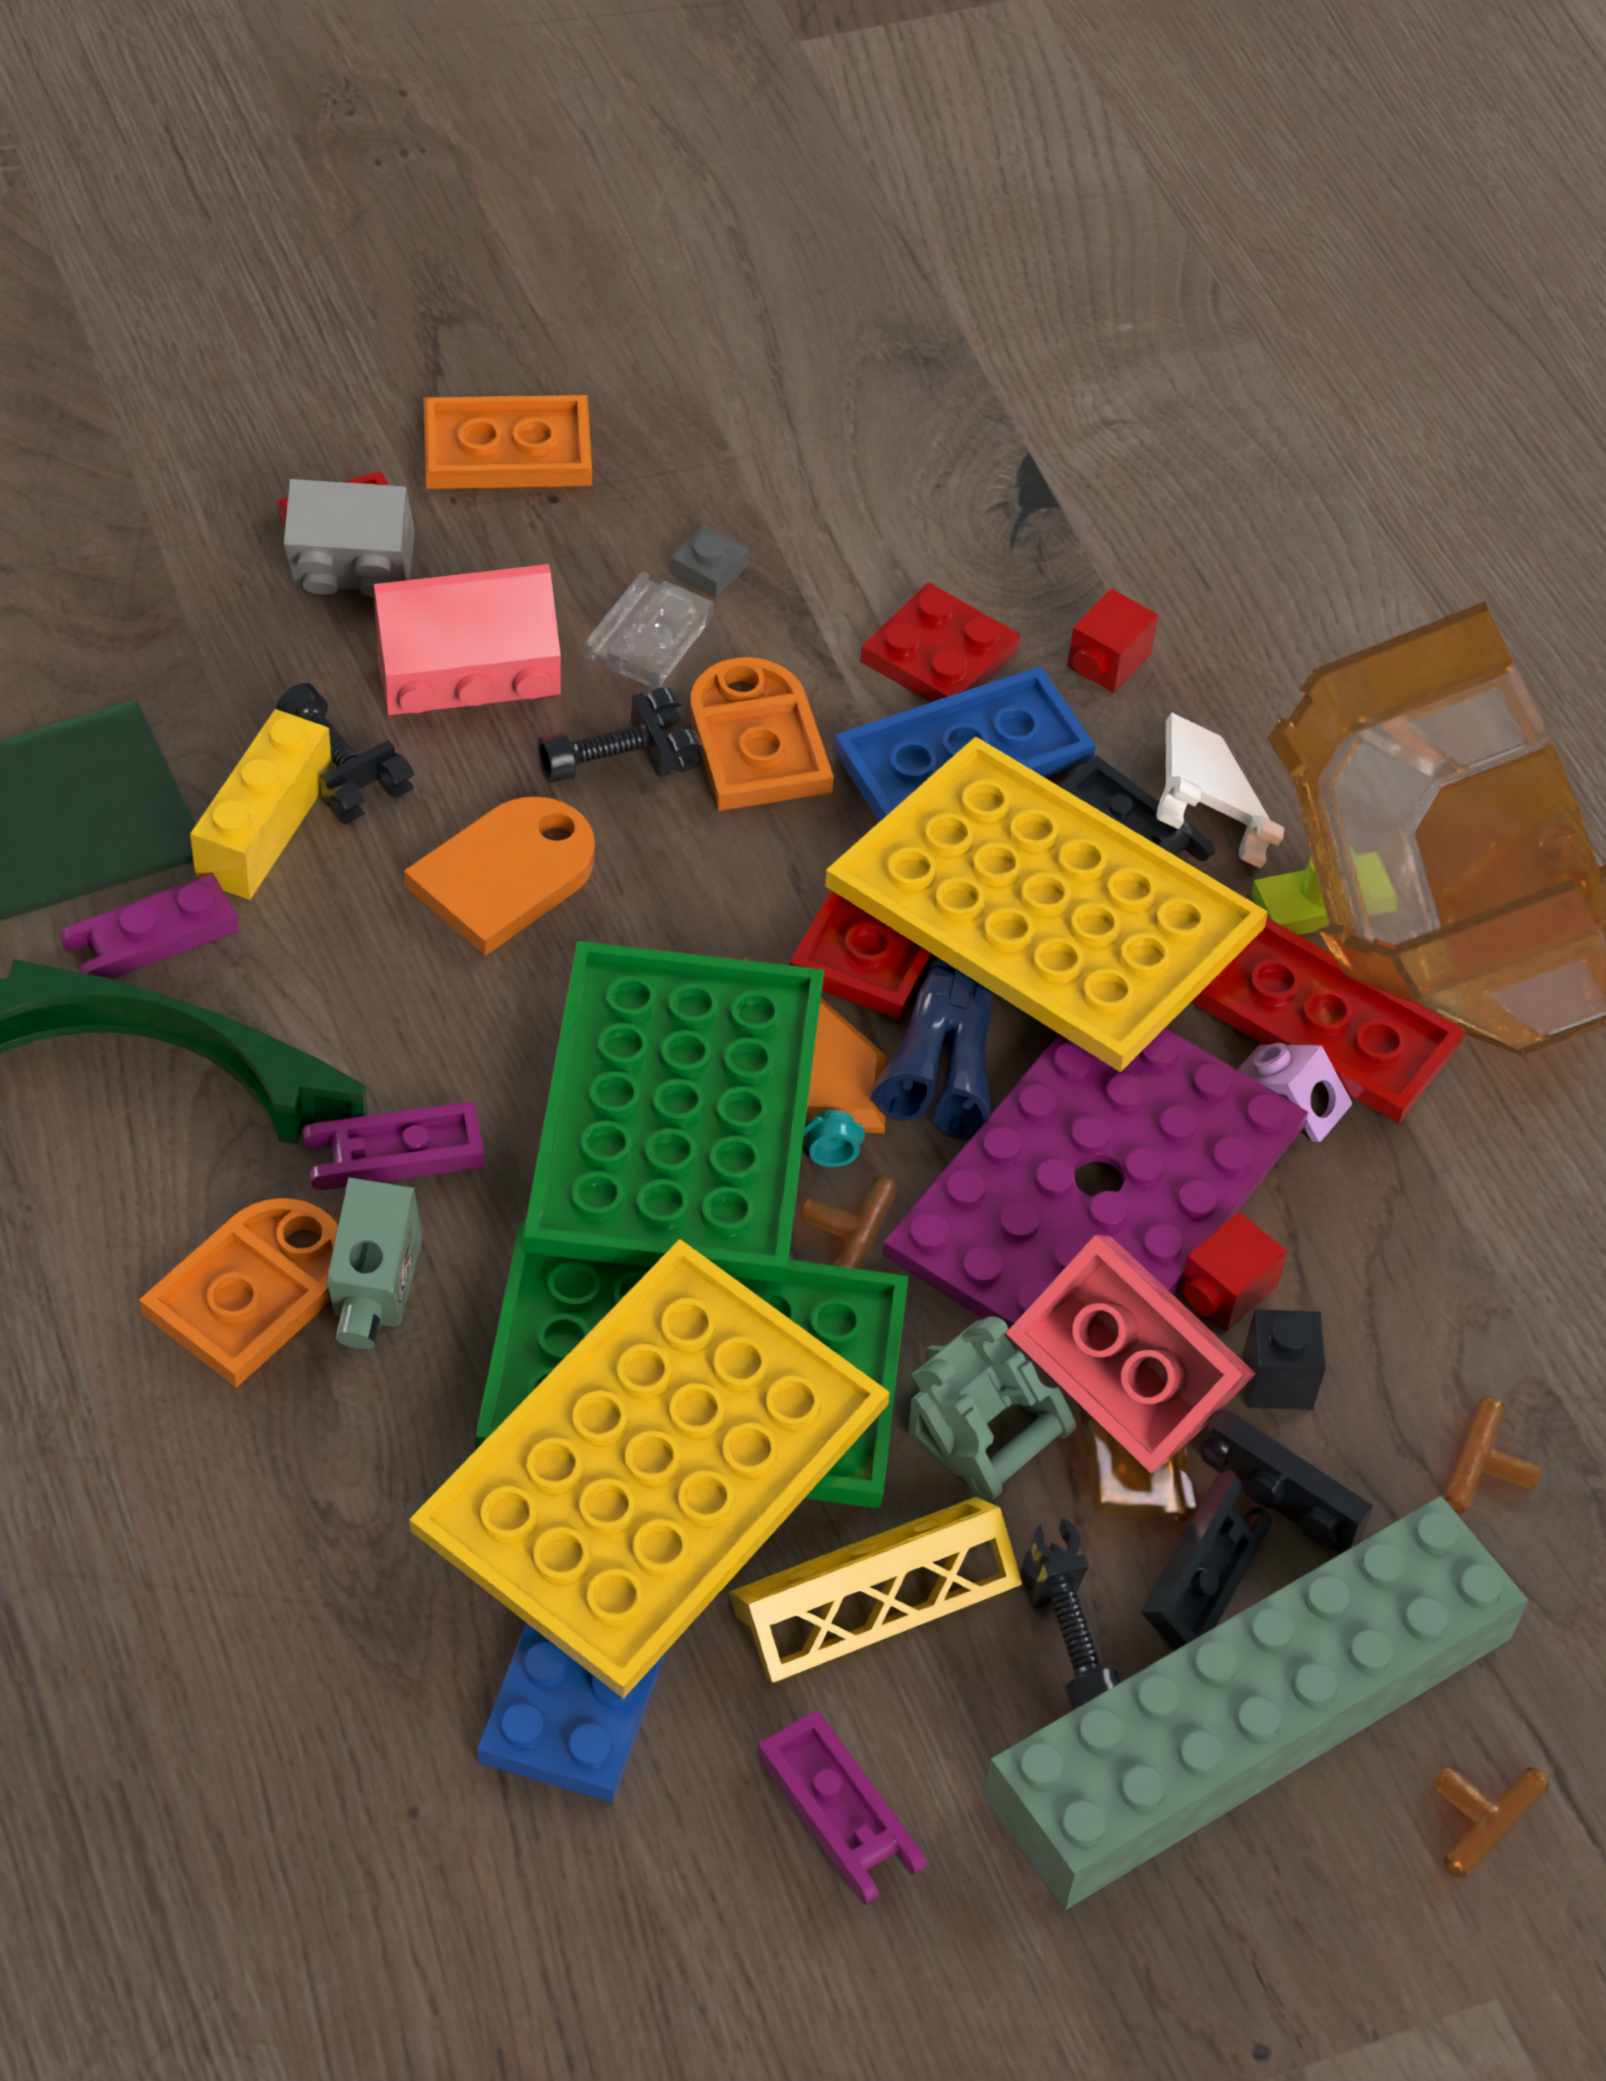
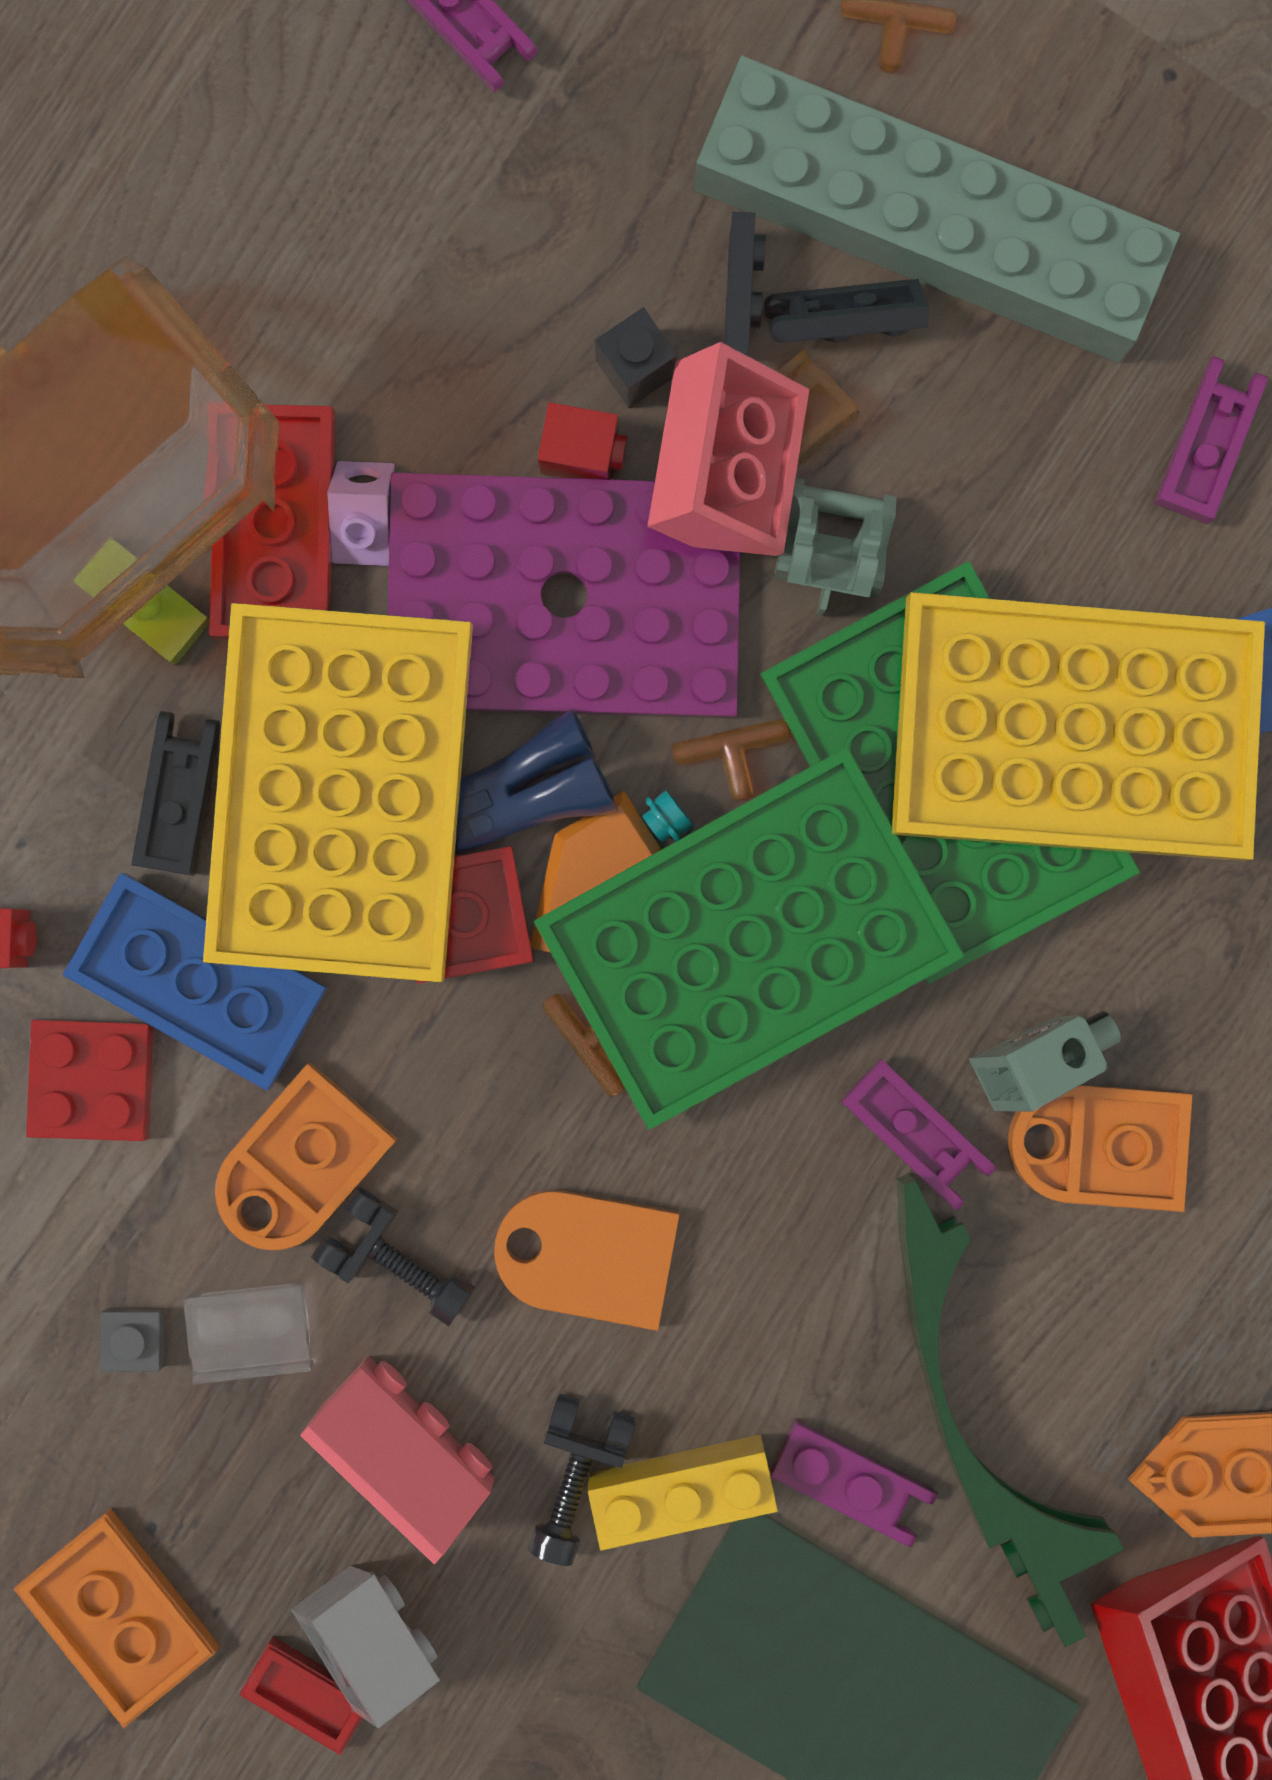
camera: 115 degrees left, 35 degrees up
(870, 1562) = (1022, 536): yellow fence -> none
(1058, 1586) = (1000, 330): black bar -> none
(1206, 772) = (88, 757): white flag -> none
(1480, 1457) = (604, 184): clear orange piece -> none

